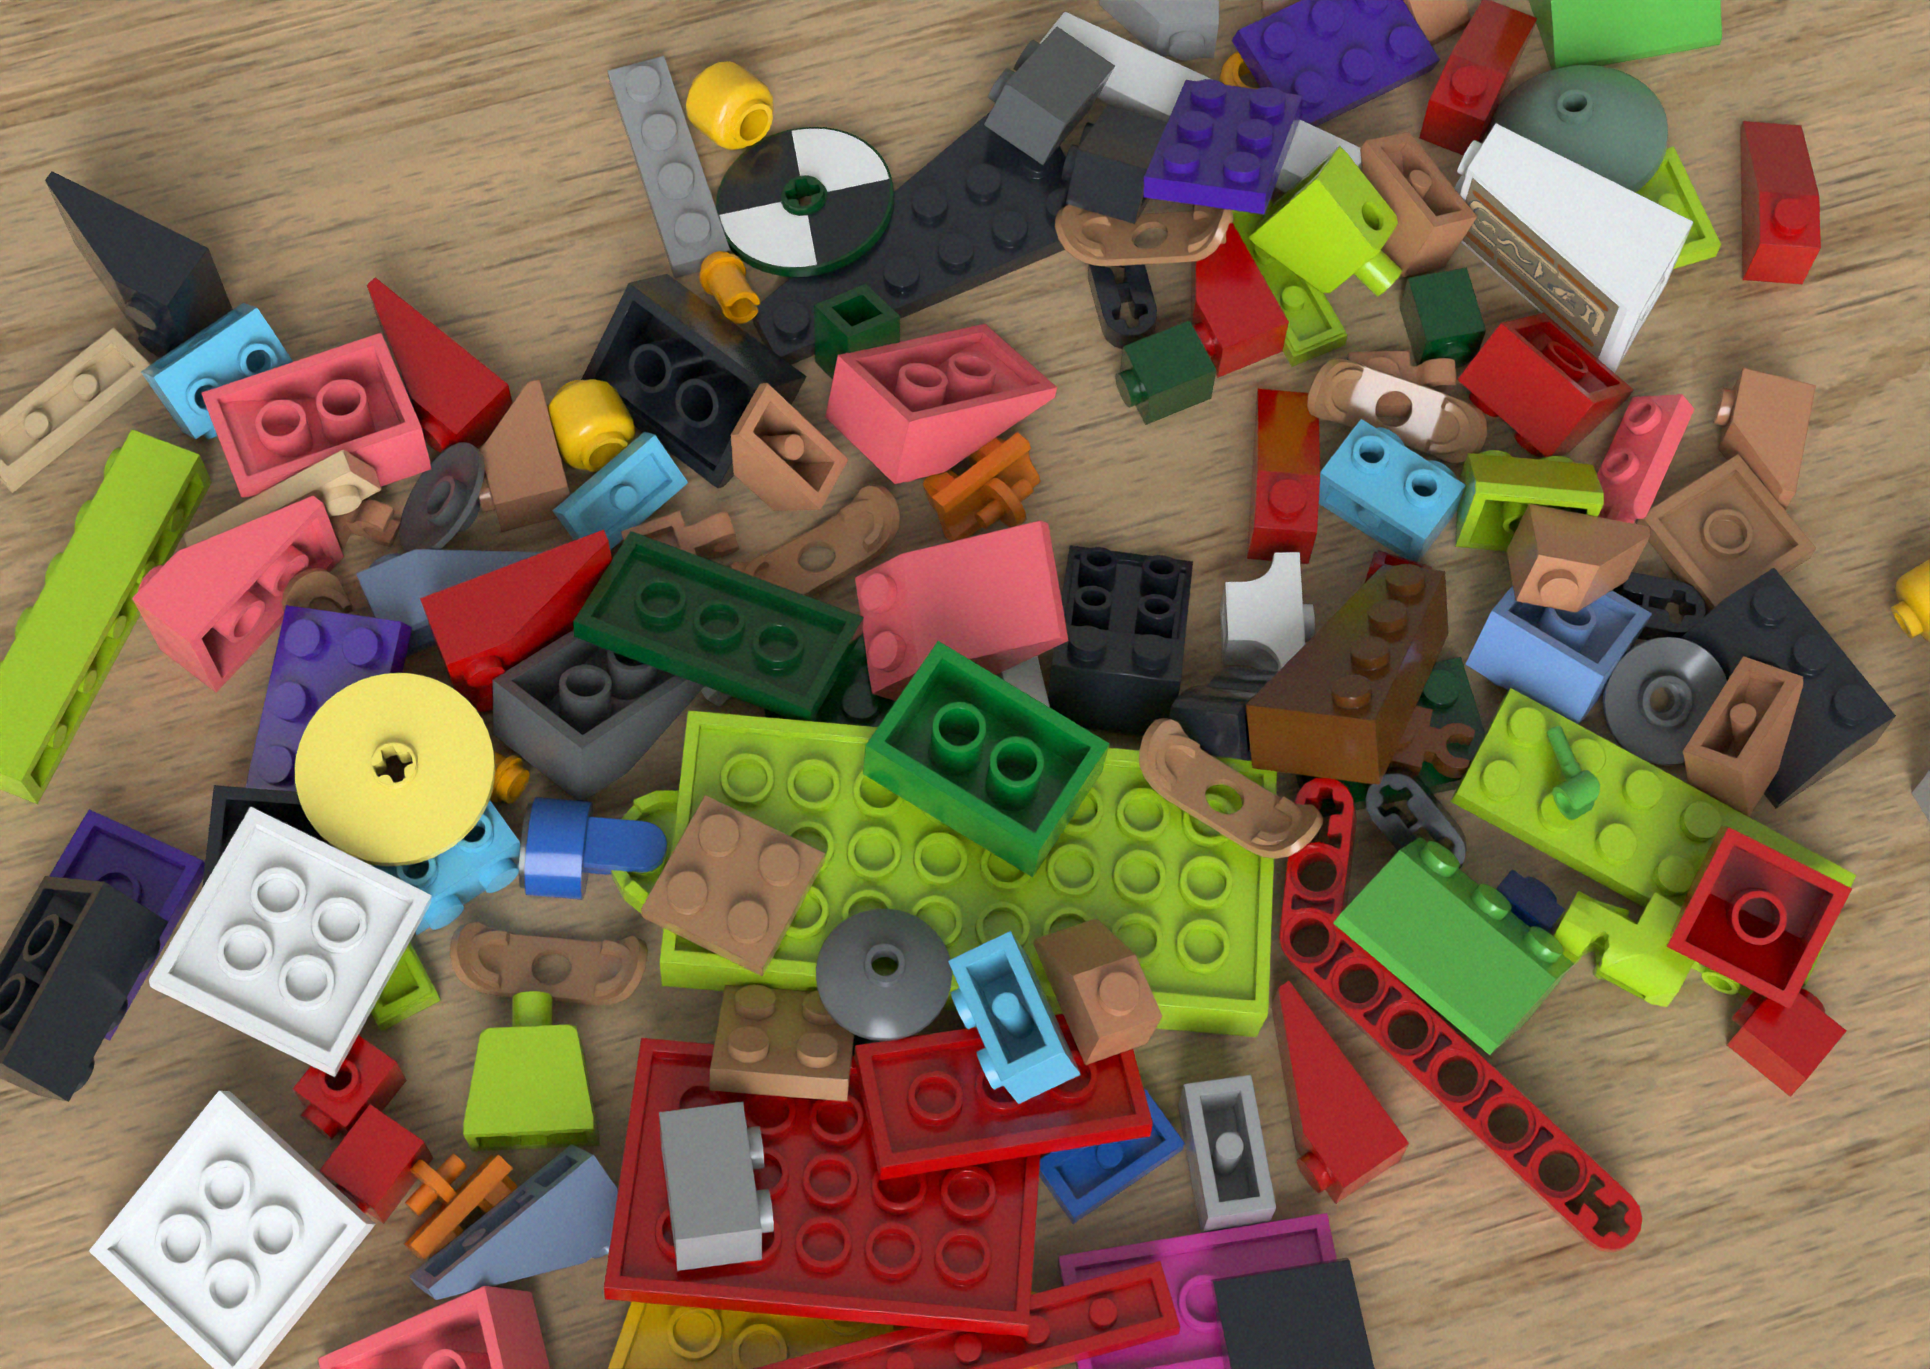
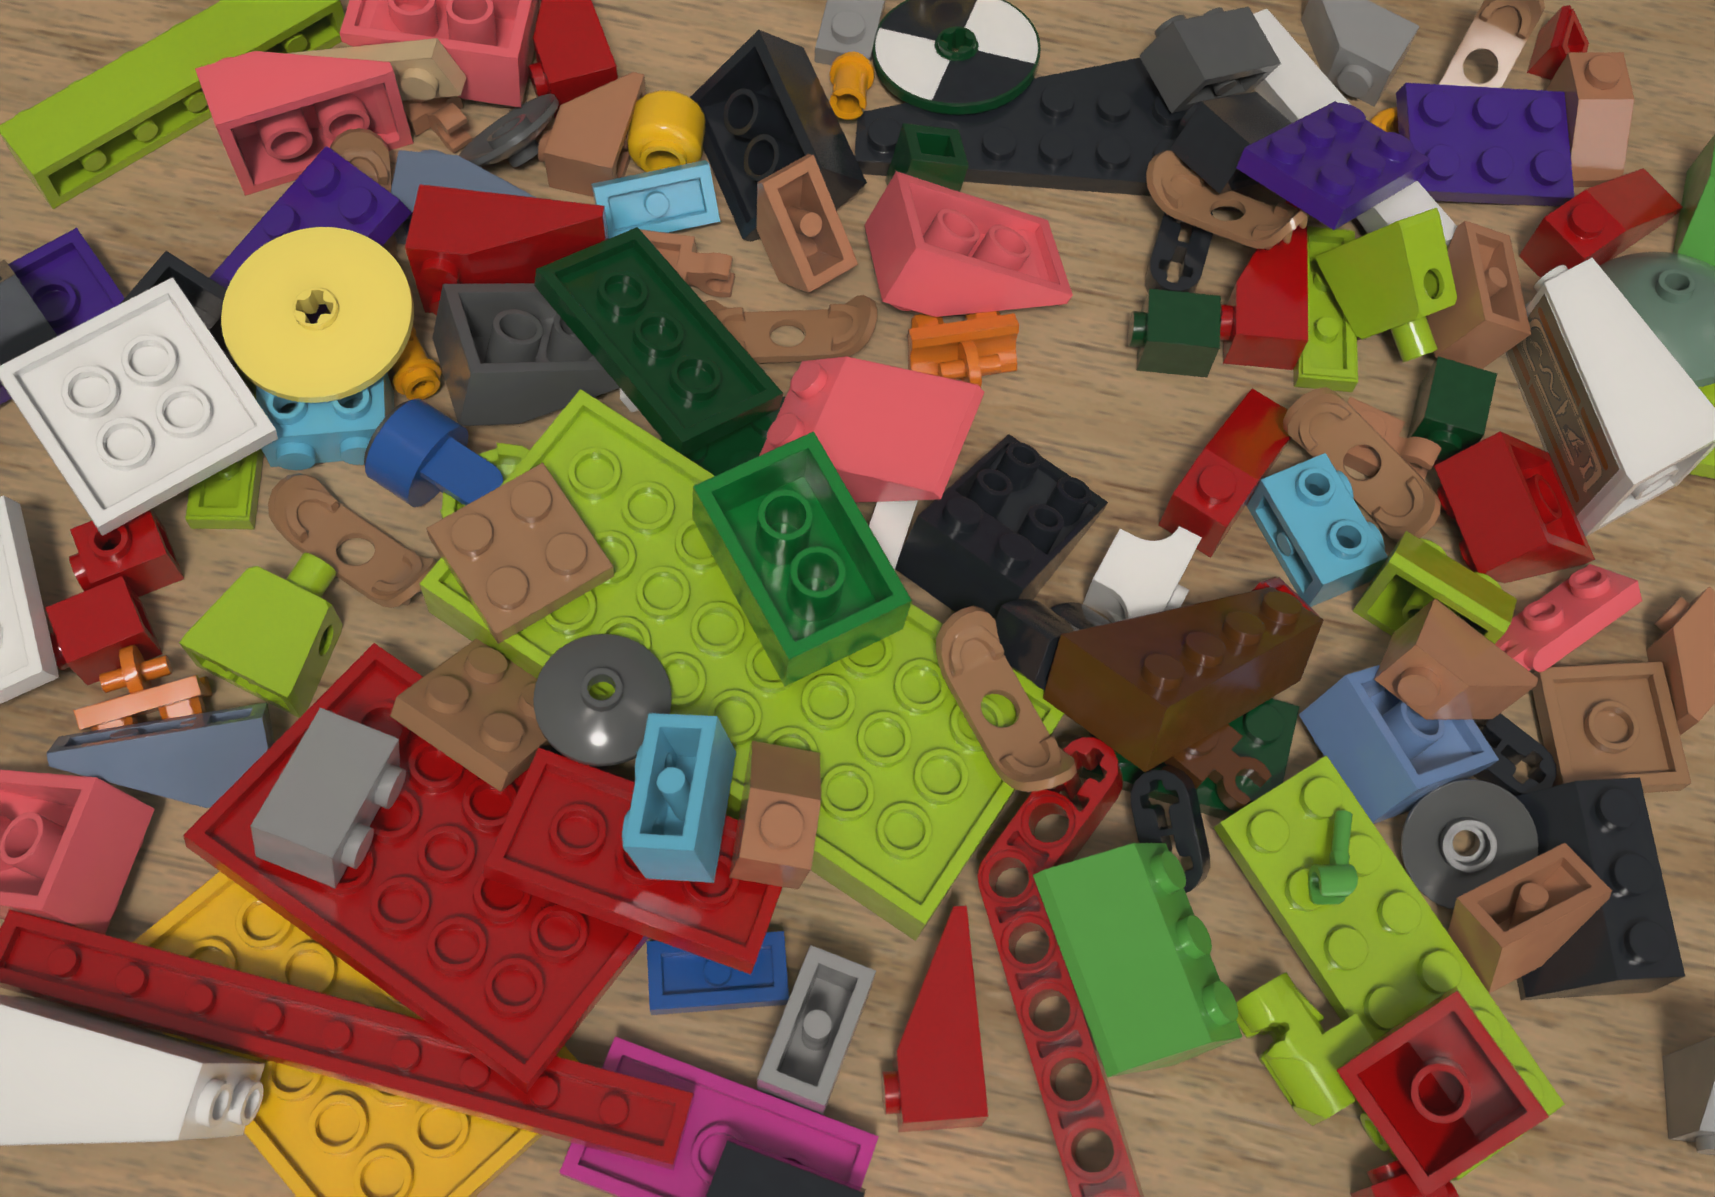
camera: 25 degrees right, 0 degrees up
(1531, 901) = (1235, 958): clear blue plate -> none

